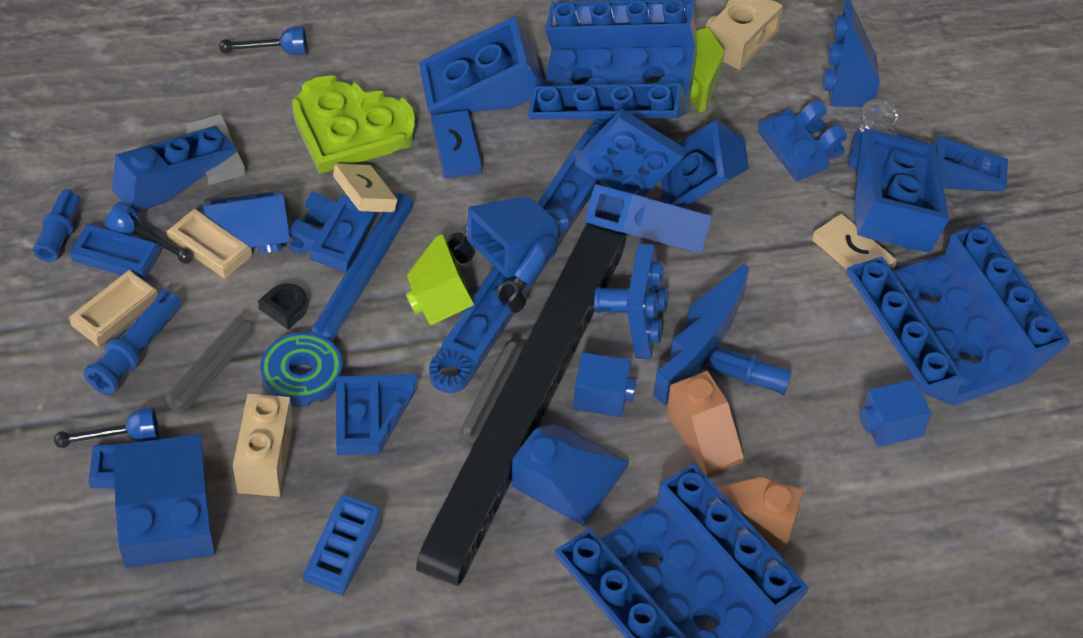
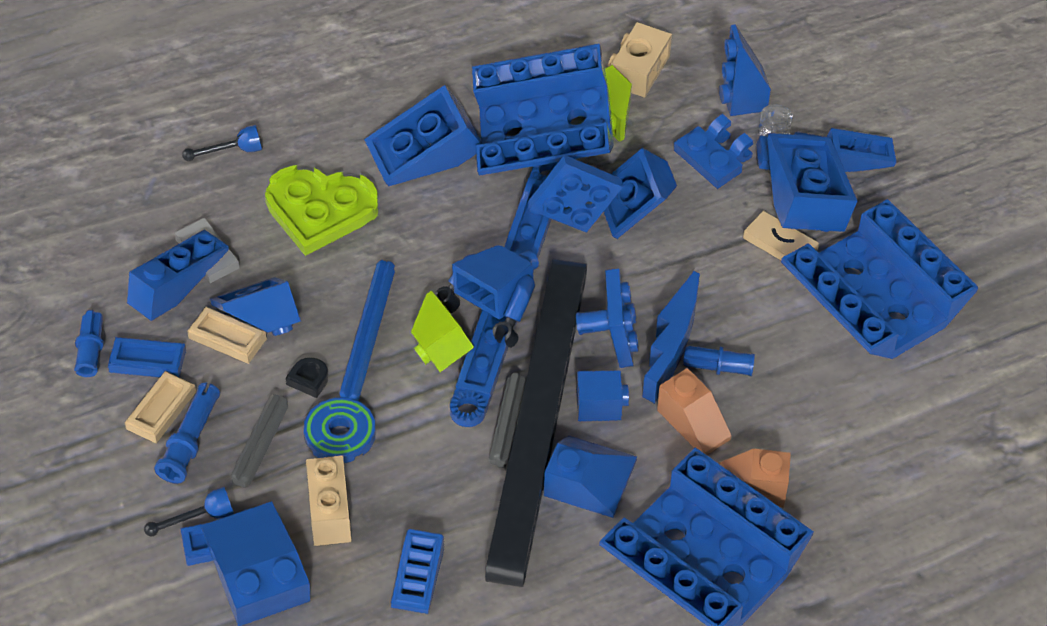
camera: 10 degrees left, 0 degrees up
(126, 220) = (149, 328): hinge -> none
(340, 236) = (342, 306): blue plate -> none
(365, 188) = (351, 261): tan tile -> none
(370, 410) = (408, 454): blue wing -> none
(456, 144) = (417, 208): blue tile -> none
(648, 218) = (603, 245): blue slope -> none
(895, 413) = (848, 374): blue brick -> none

